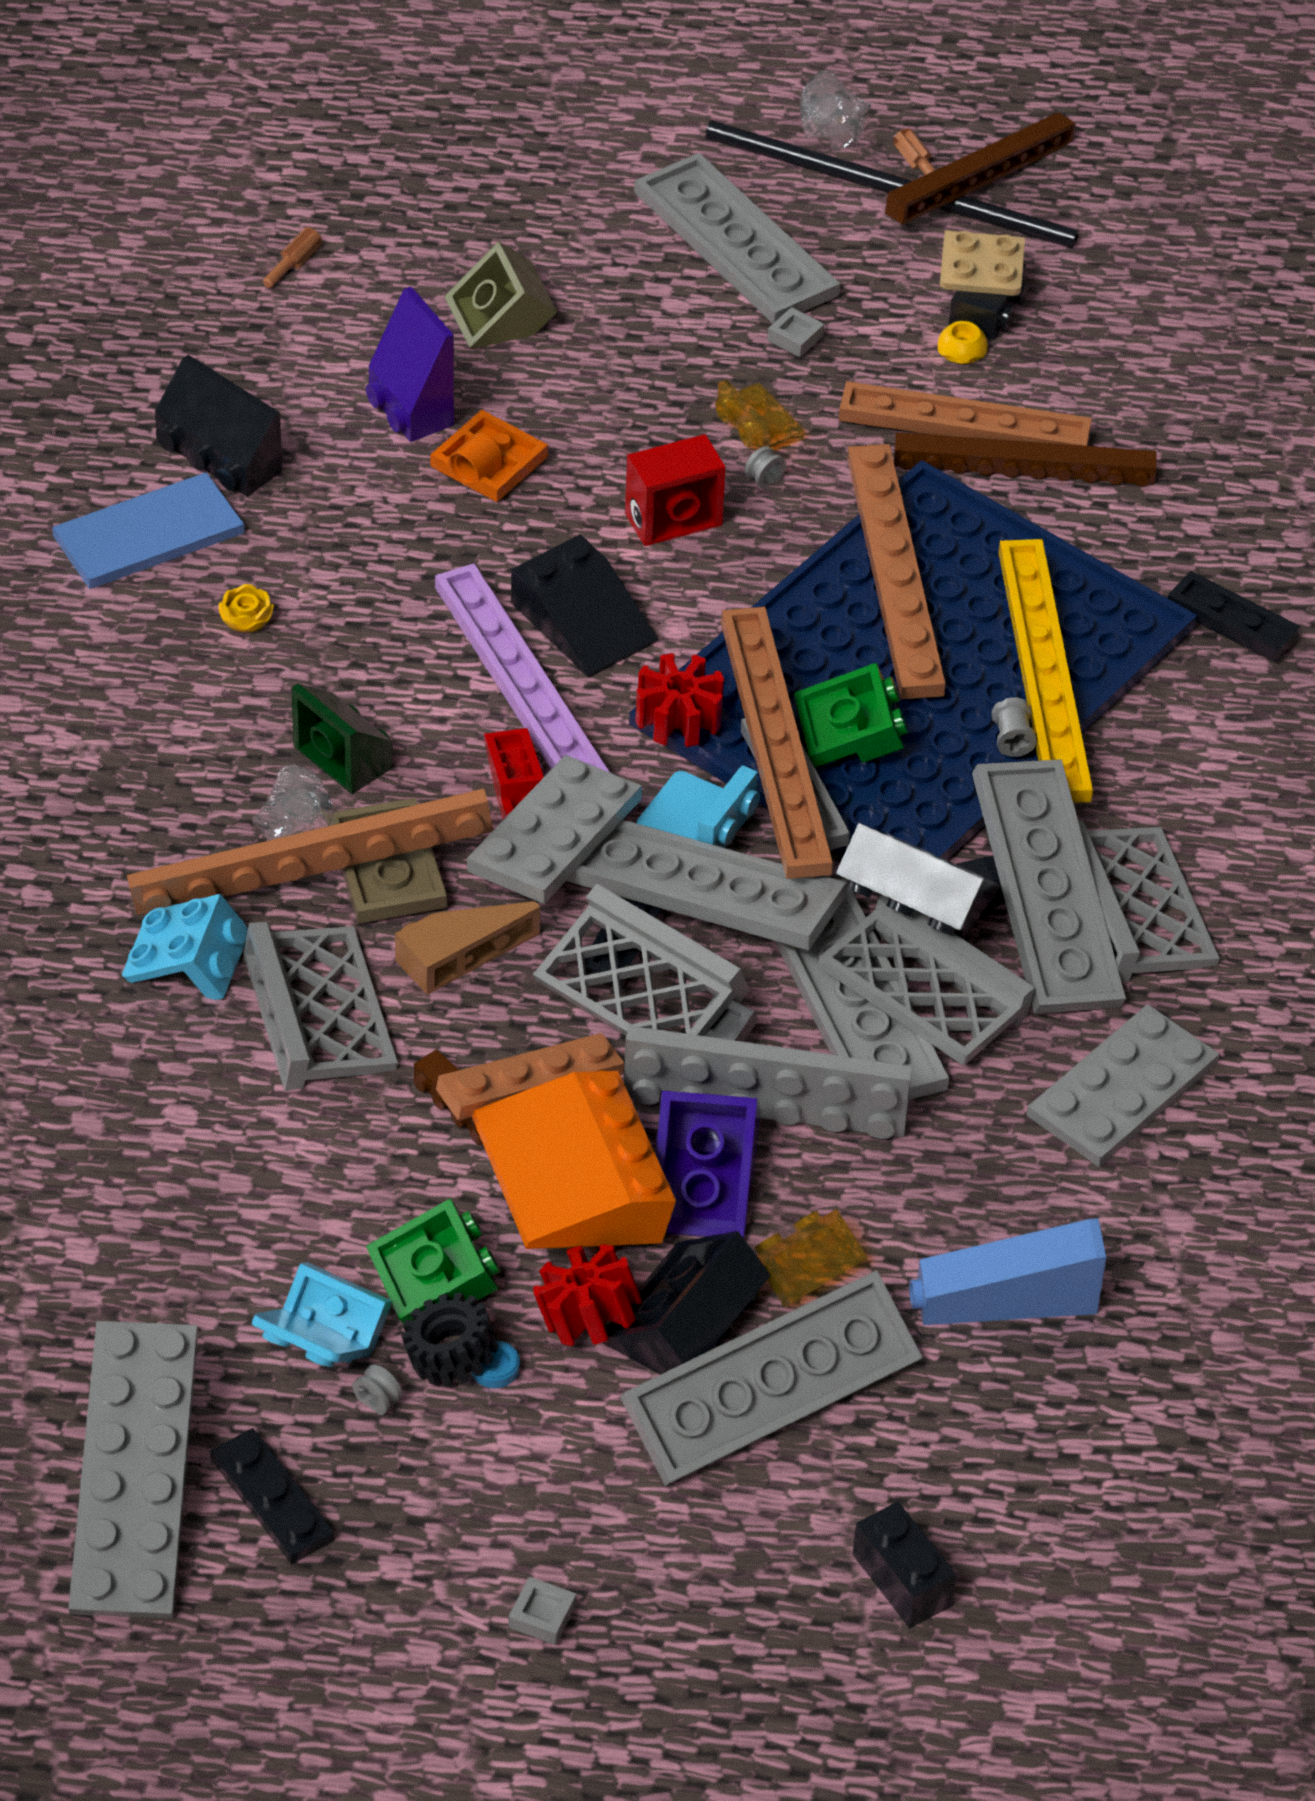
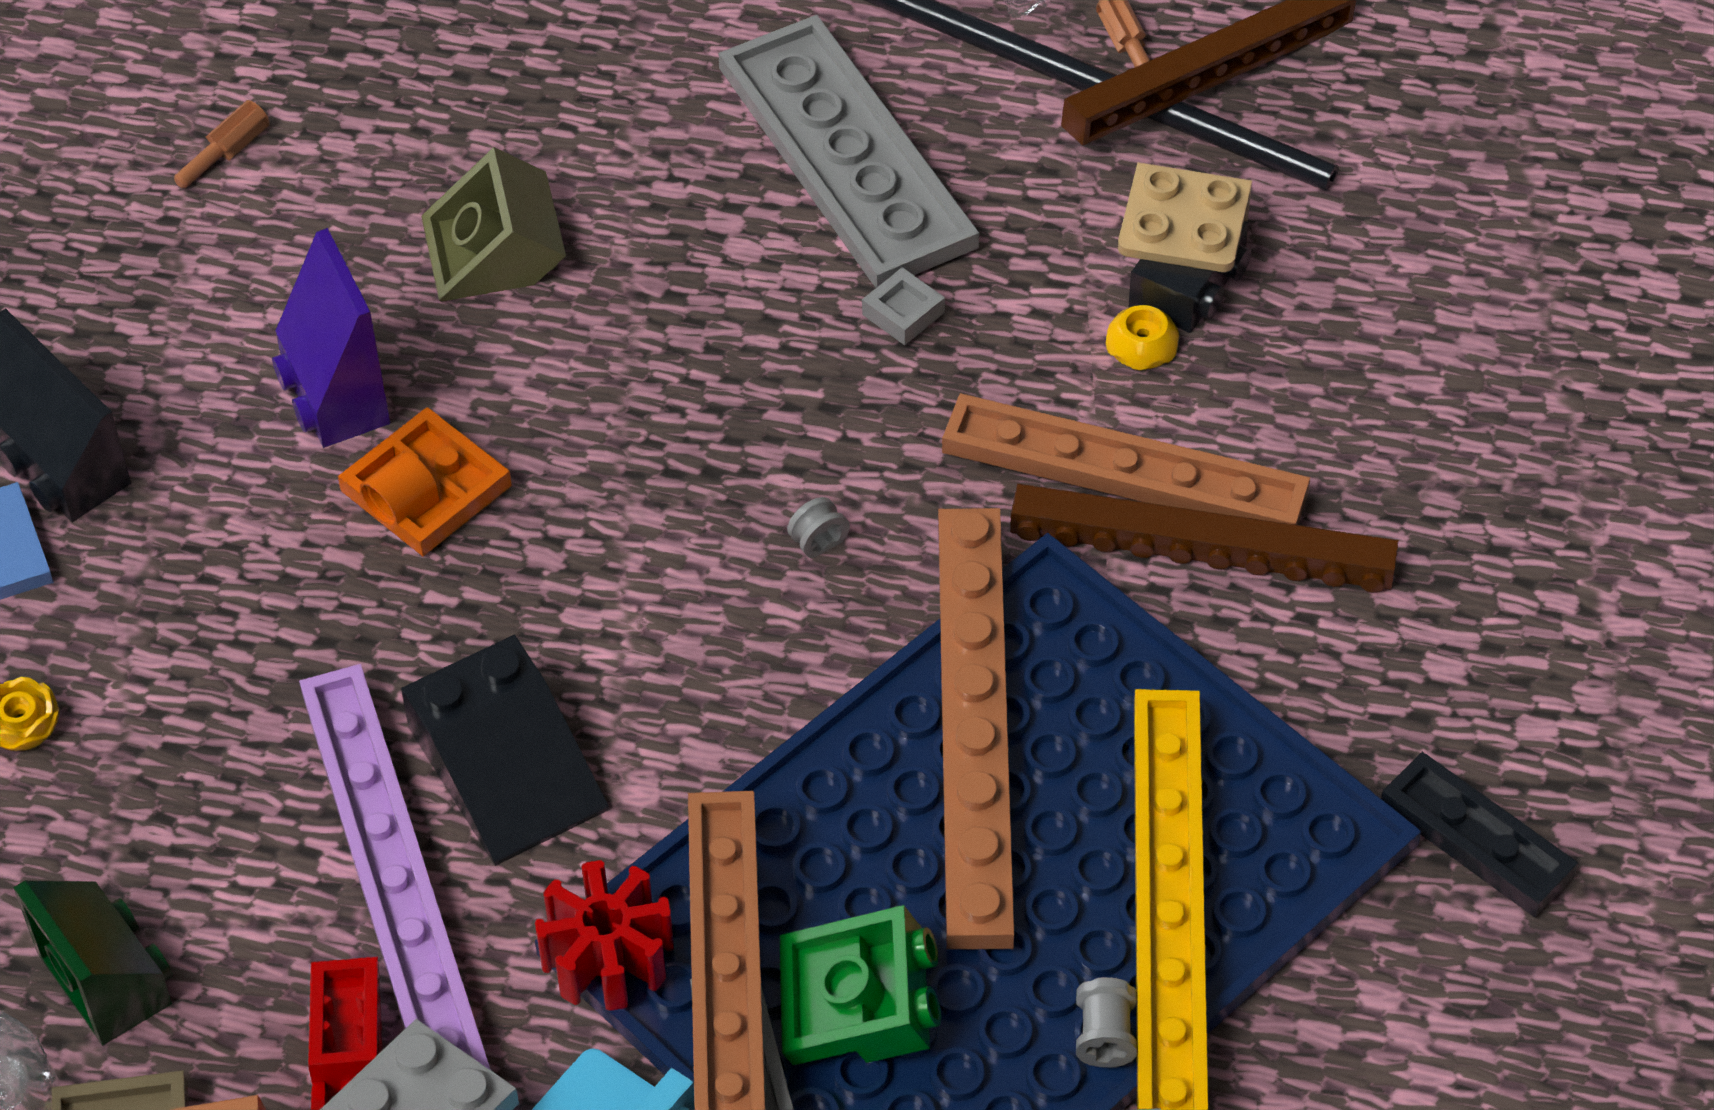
camera: 10 degrees right, 5 degrees up
(675, 490) = (670, 565): red brick -> none
(757, 416) = (824, 441): clear yellow bracket -> none

